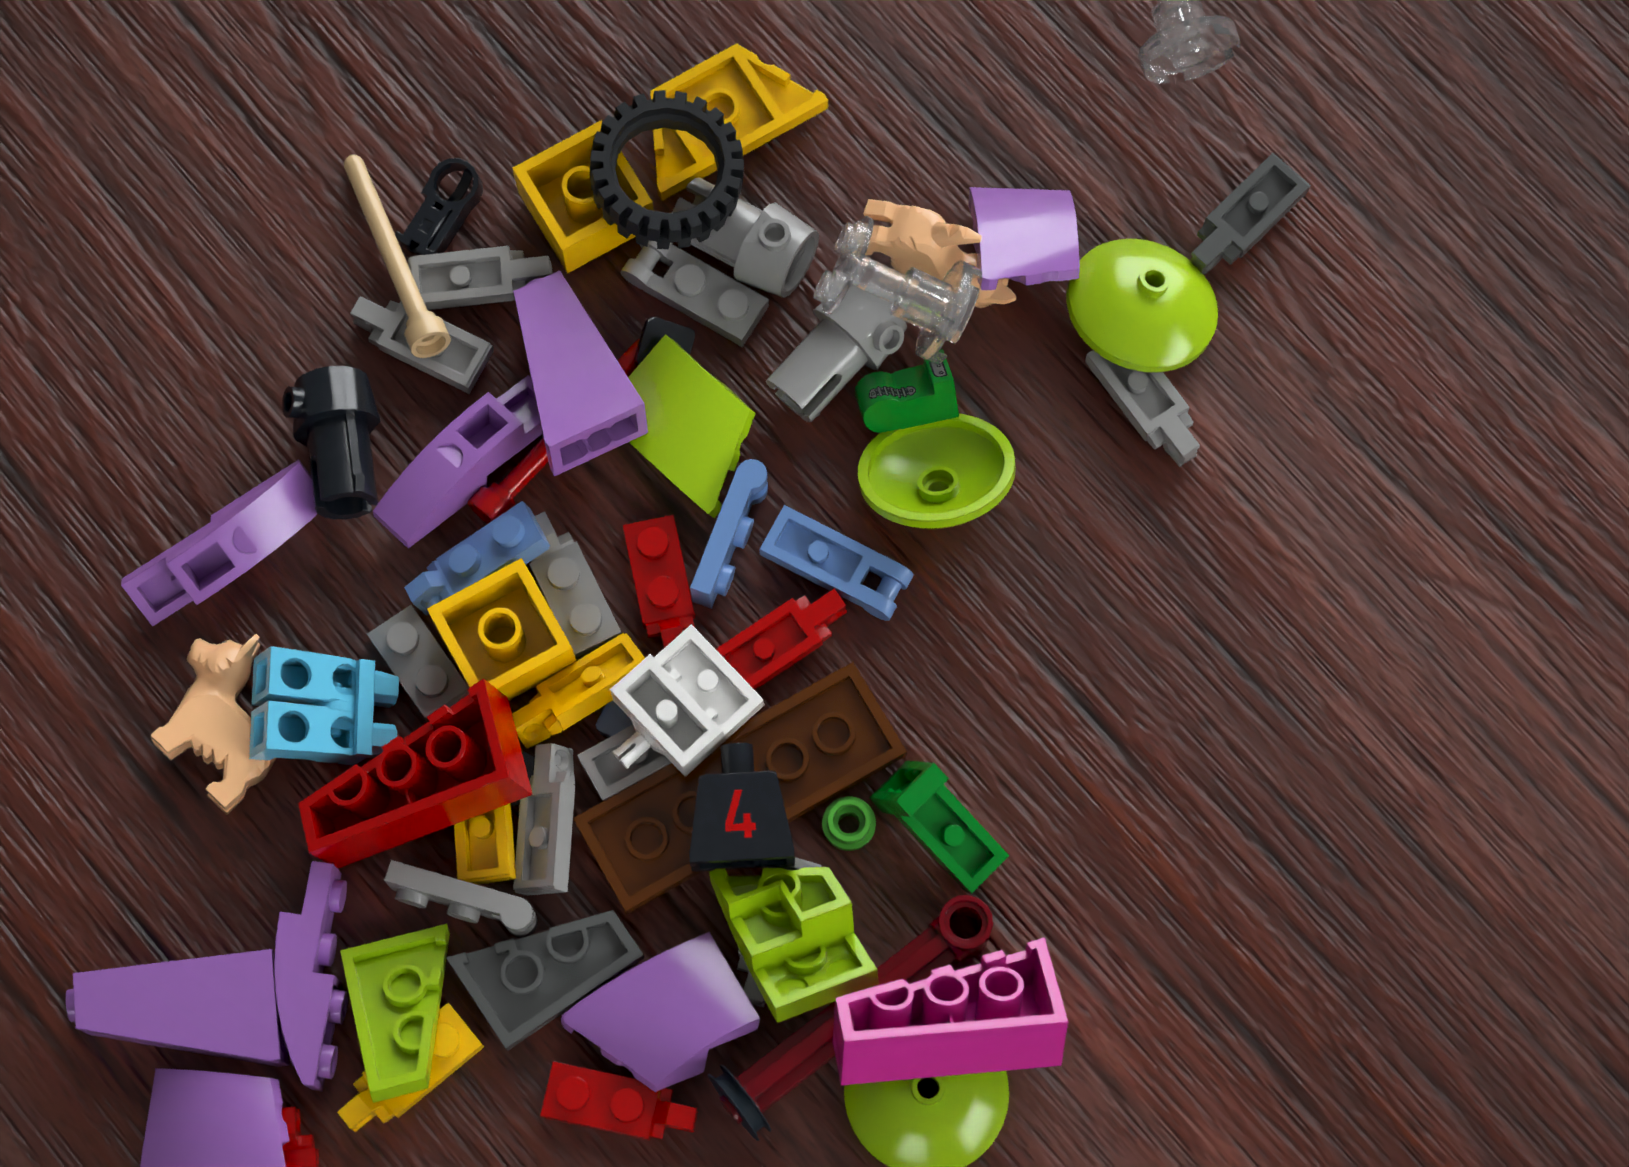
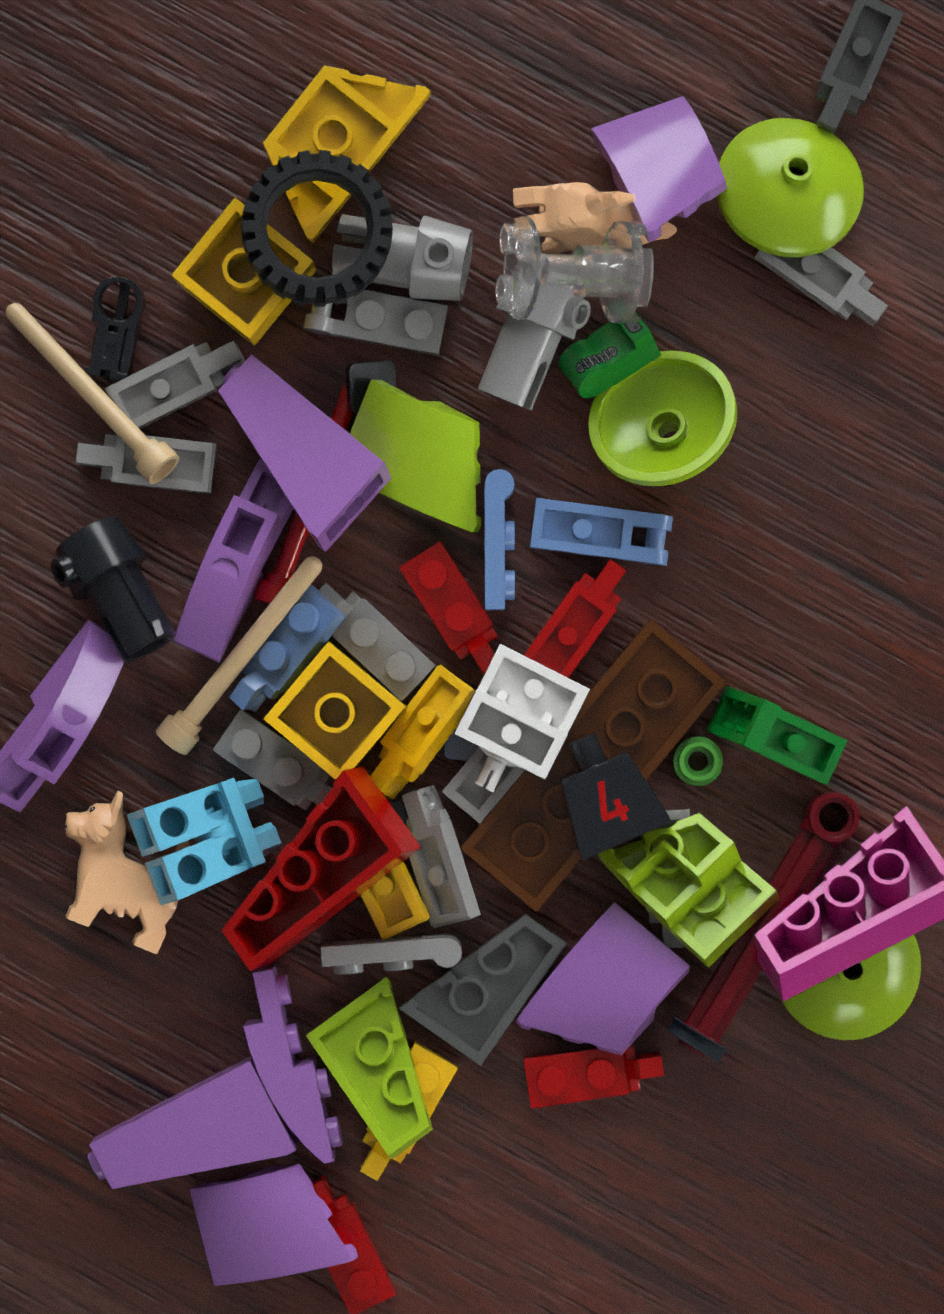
camera: 20 degrees left, 15 degrees up
(346, 601) = (182, 729): none -> tan piece

